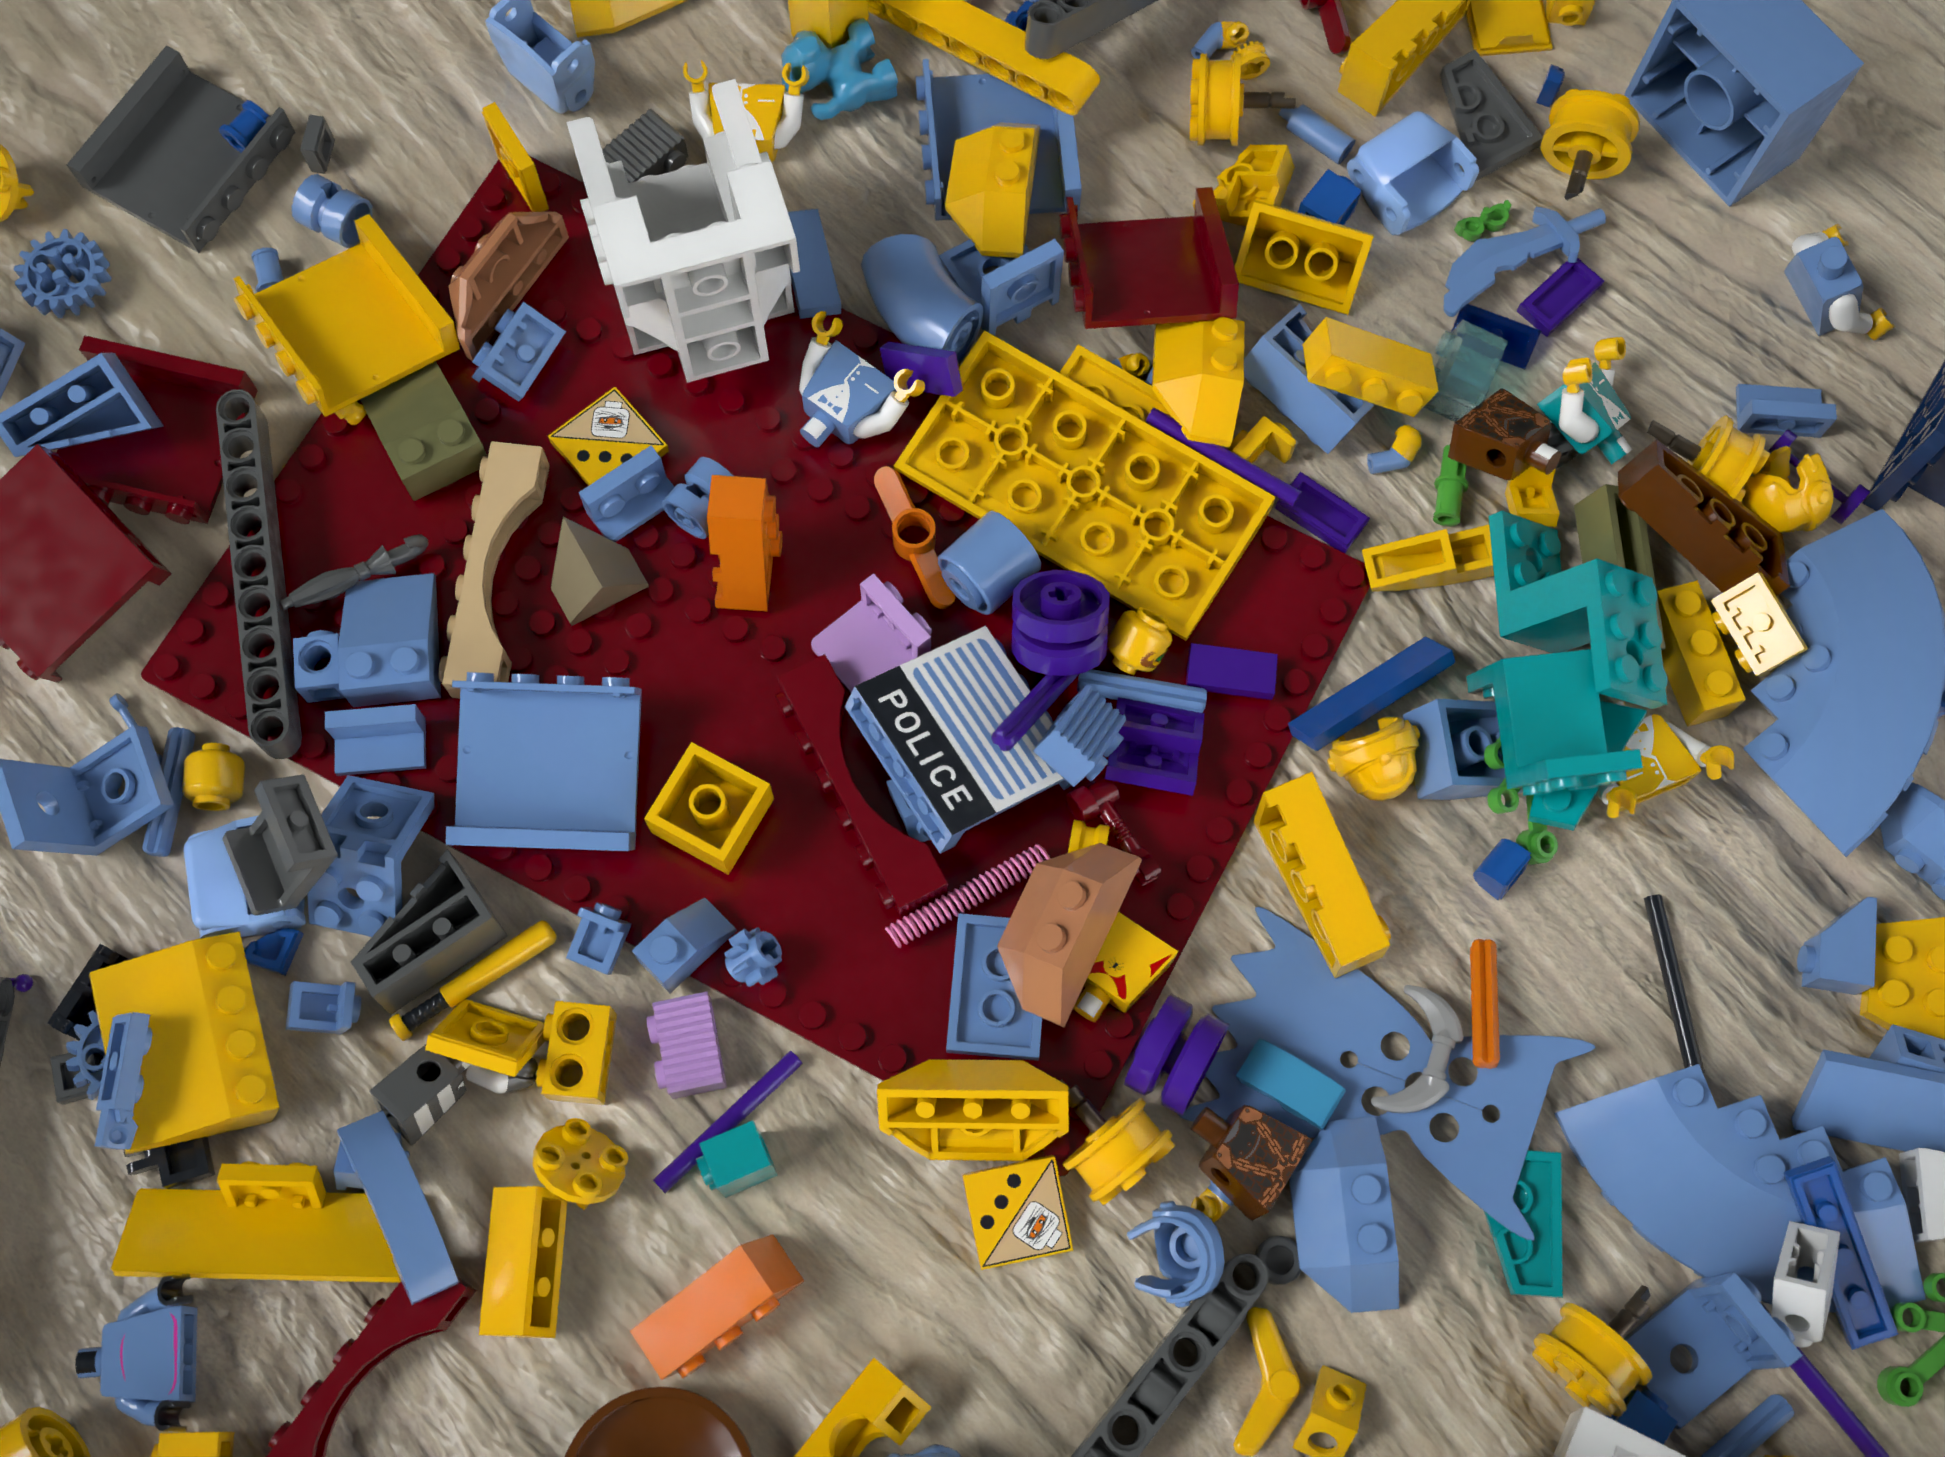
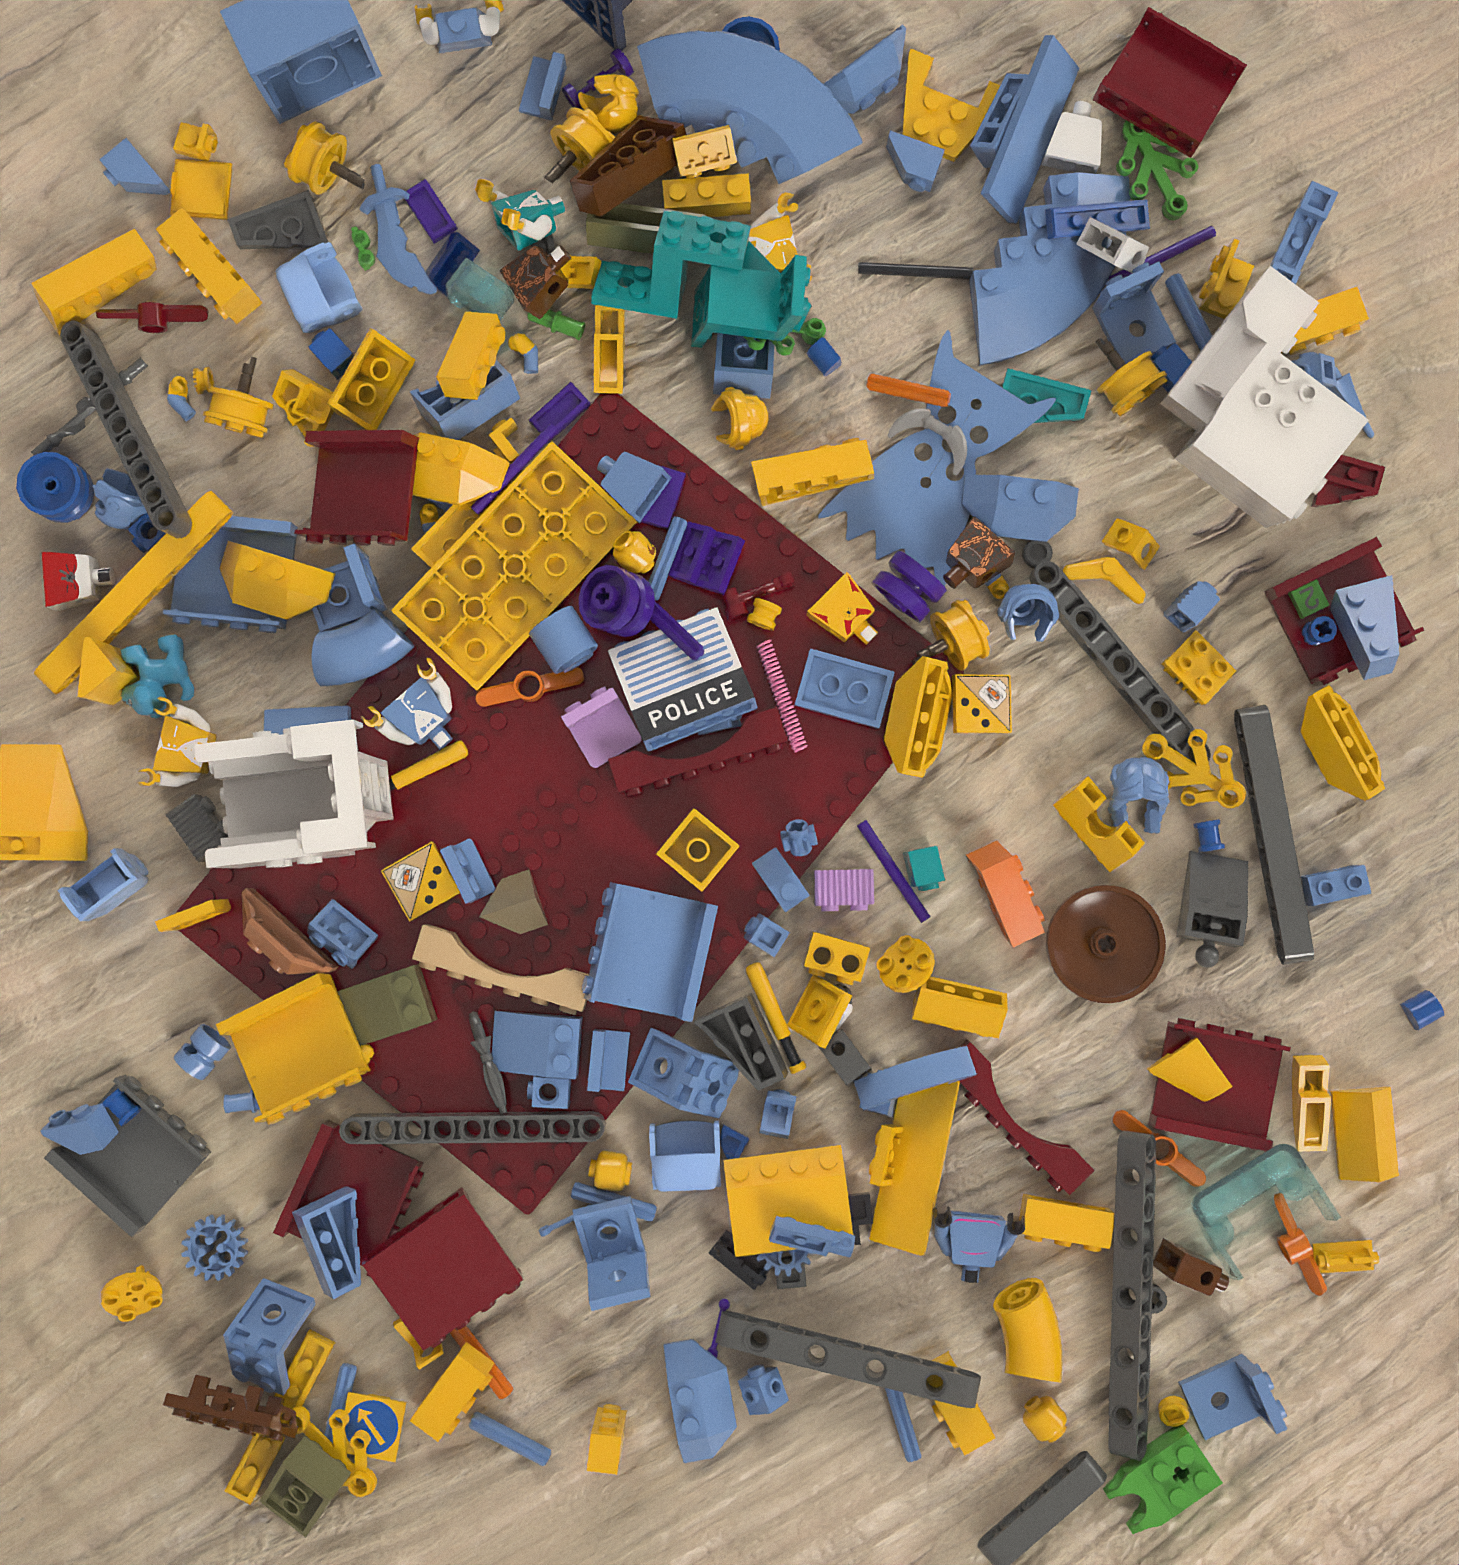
camera: 75 degrees left, 15 degrees up
(210, 83) = (81, 1129): none -> medium blue slope
(283, 848) = (681, 1124): dark grey panel -> none
(317, 144) = (143, 1057): dark grey tile -> none
(689, 502) = (470, 815): medium blue wheel -> none
(745, 538) = (518, 798): orange wedge -> none
(774, 422) = (429, 765): none -> yellow piece
(933, 366) = (415, 651): dark purple tile -> none
(1063, 926) = (818, 639): nougat wedge -> none
(1082, 737) = (698, 603): medium blue brick -> none
(1239, 620) = (633, 482): none -> medium blue torso
(1291, 1083) = (936, 521): dark azure slope -> none
(1318, 132) = (271, 345): medium blue cylinder -> none
(1371, 693) = (694, 410): blue tile -> none
(1551, 85) = (264, 172): blue tile -> none

